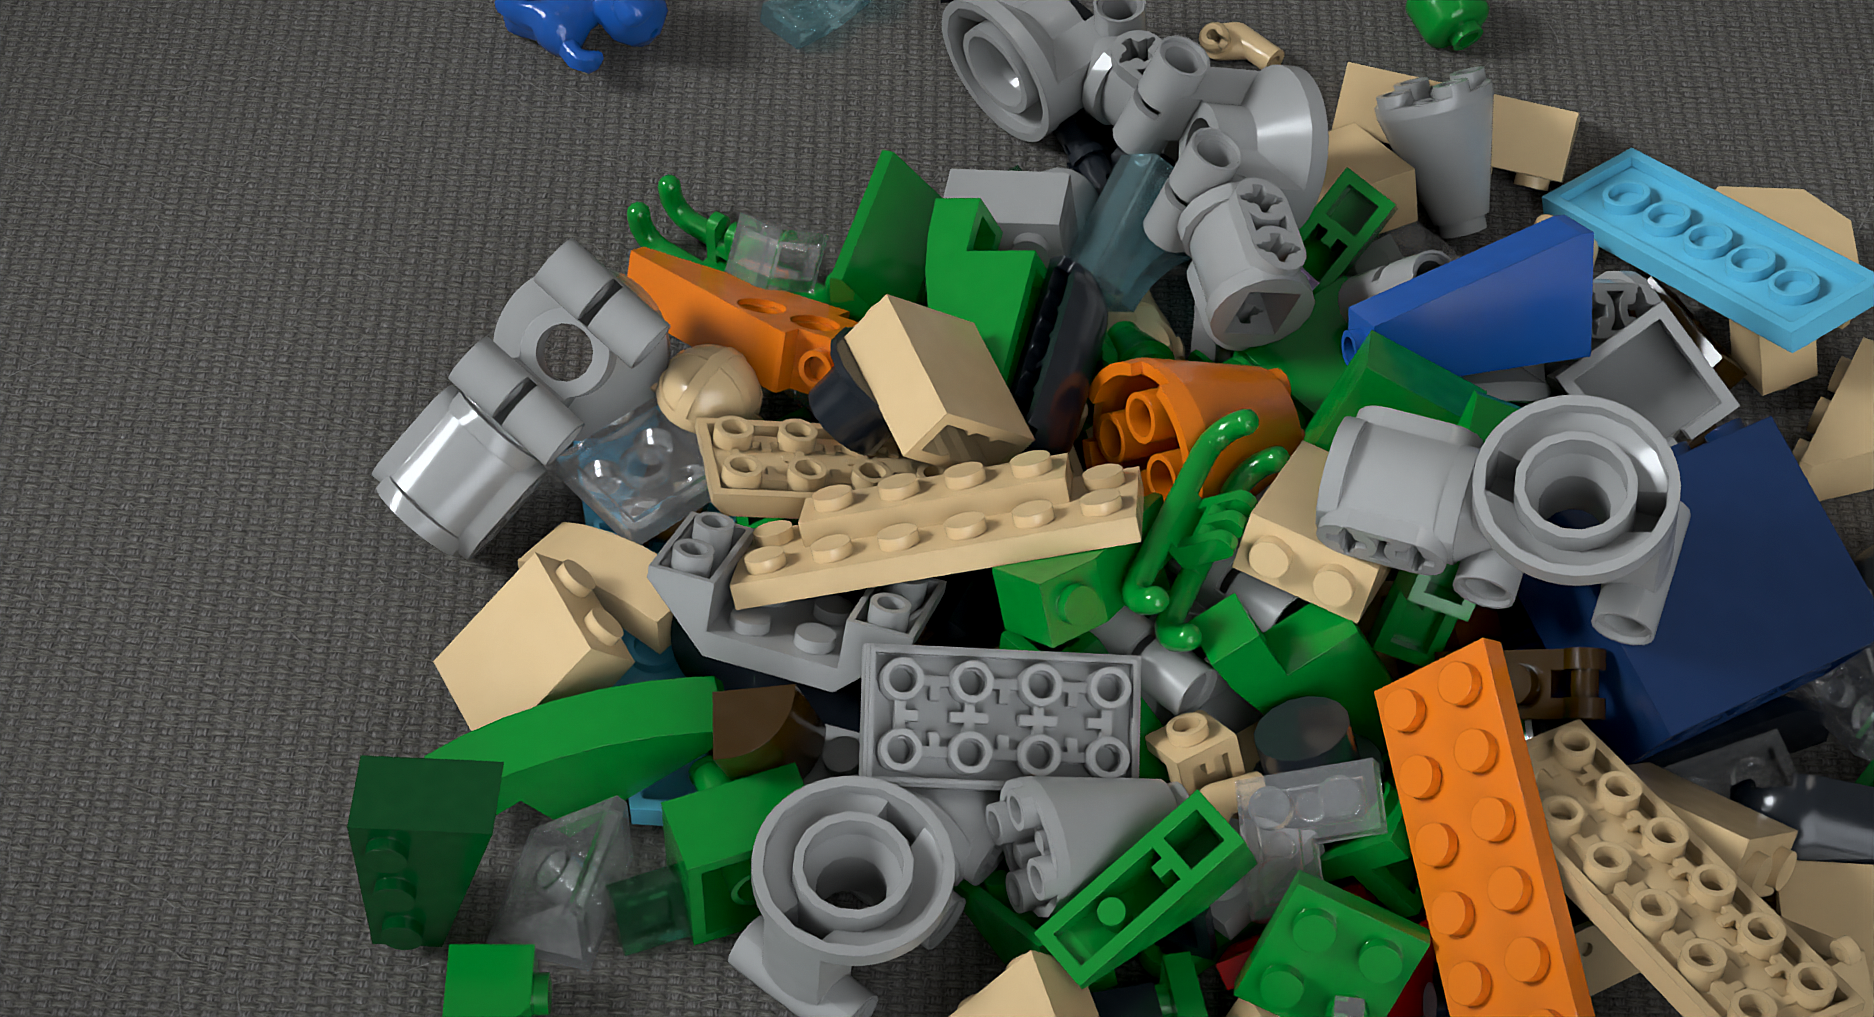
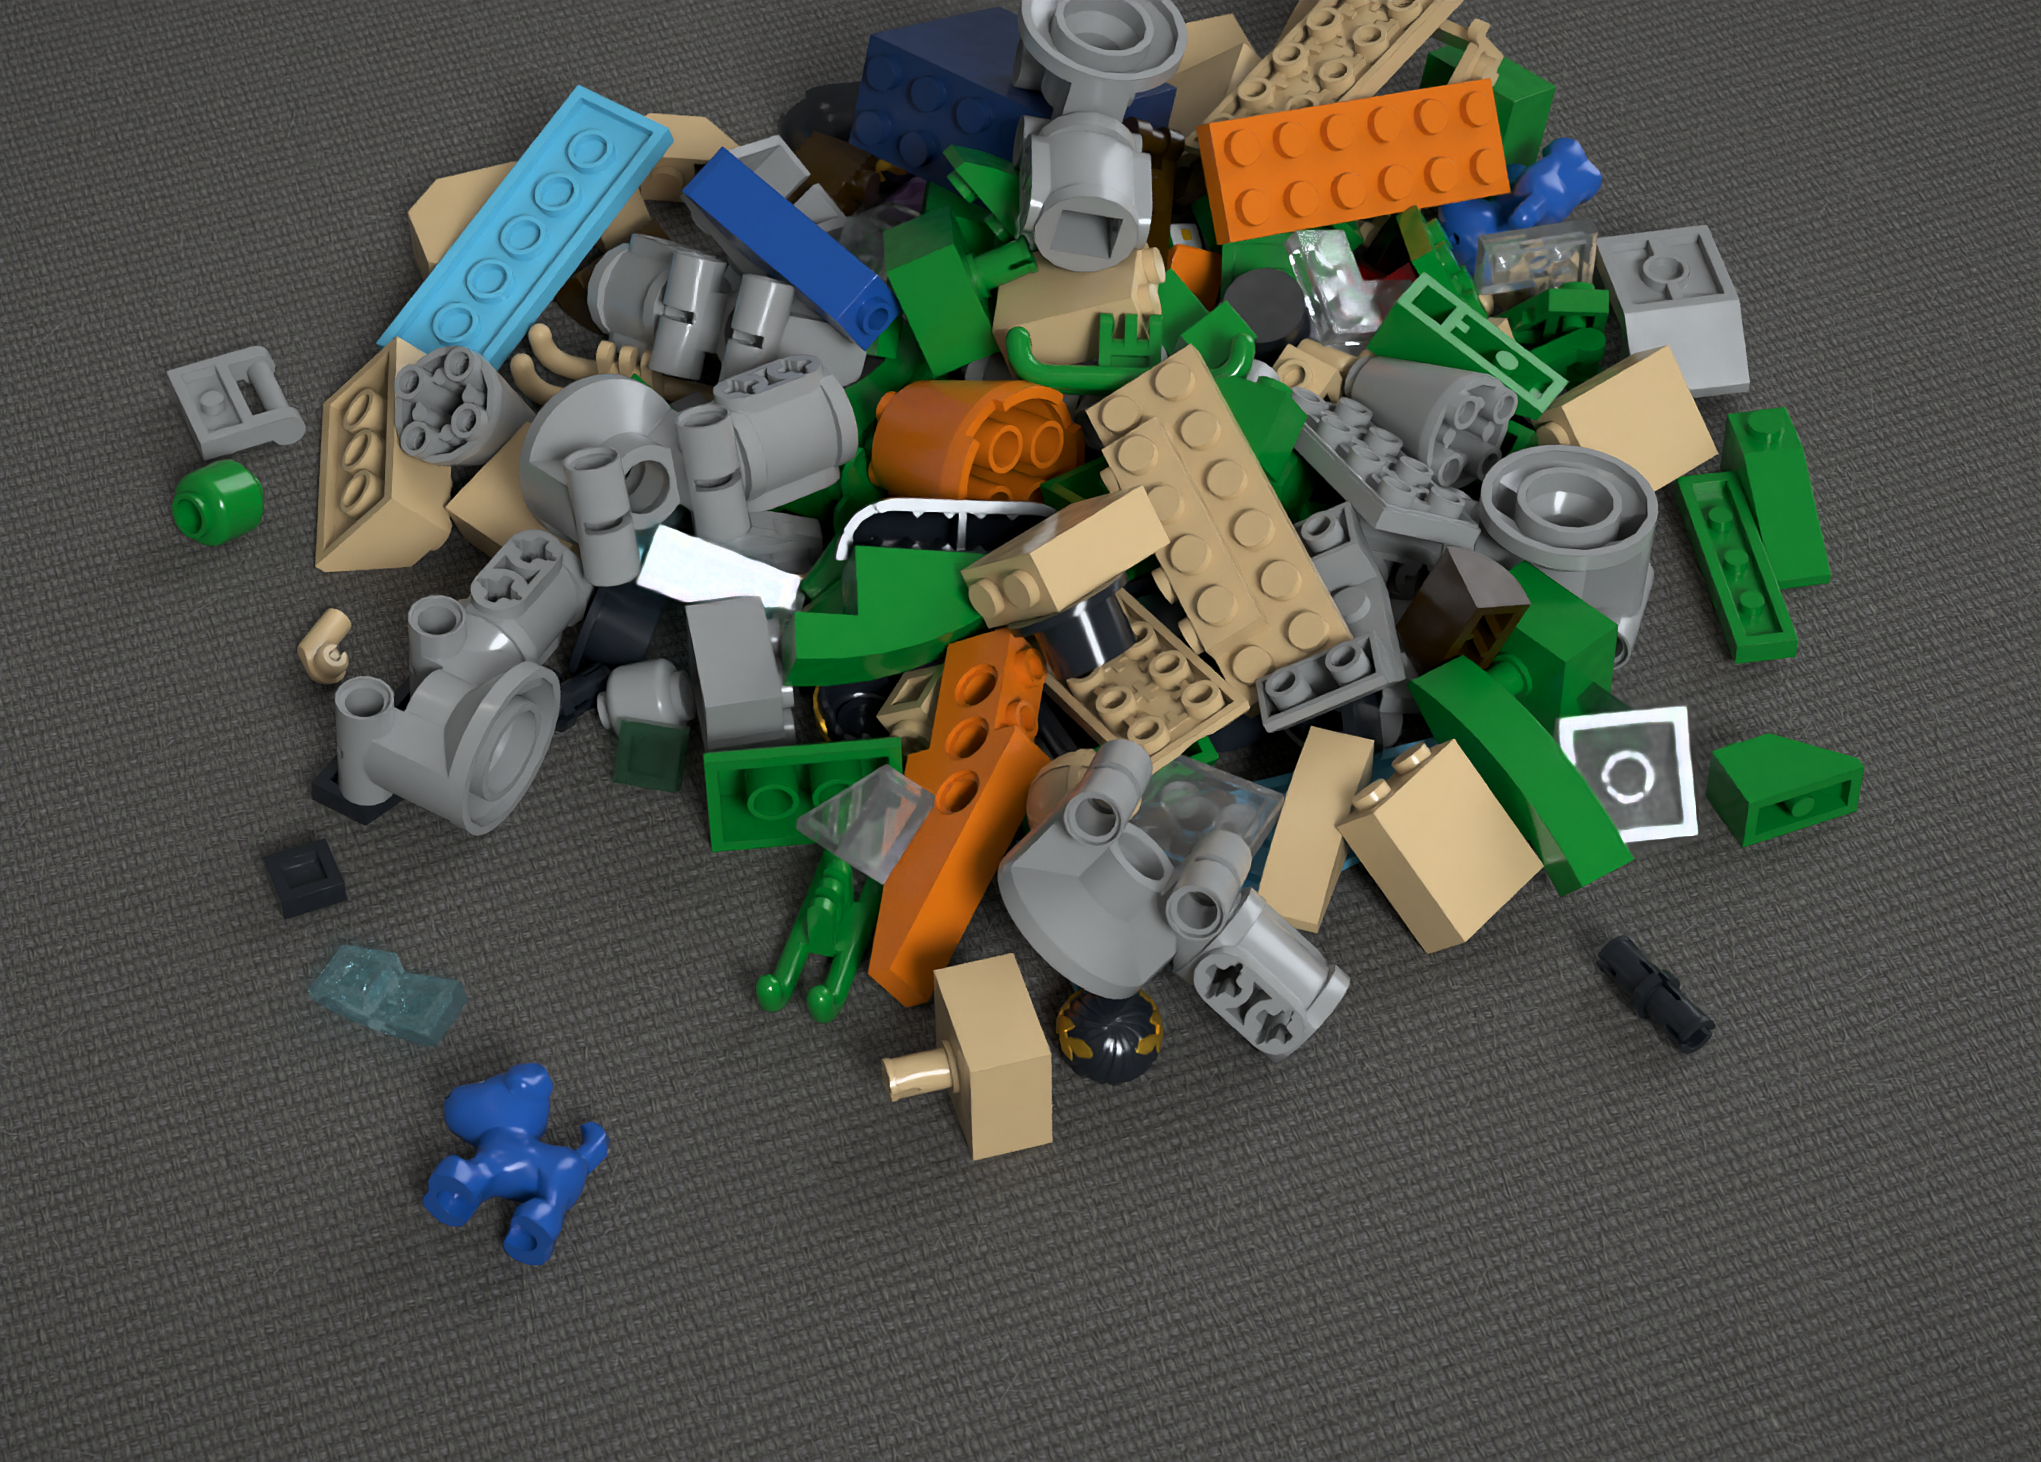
camera: 110 degrees left, 5 degrees down
(293, 804) = (1655, 994): none -> black pin
(418, 842) = (1703, 812): dark green wedge -> none
(477, 269) = (986, 1057): none -> tan brick
(1592, 37) = (217, 410): none -> light grey plate

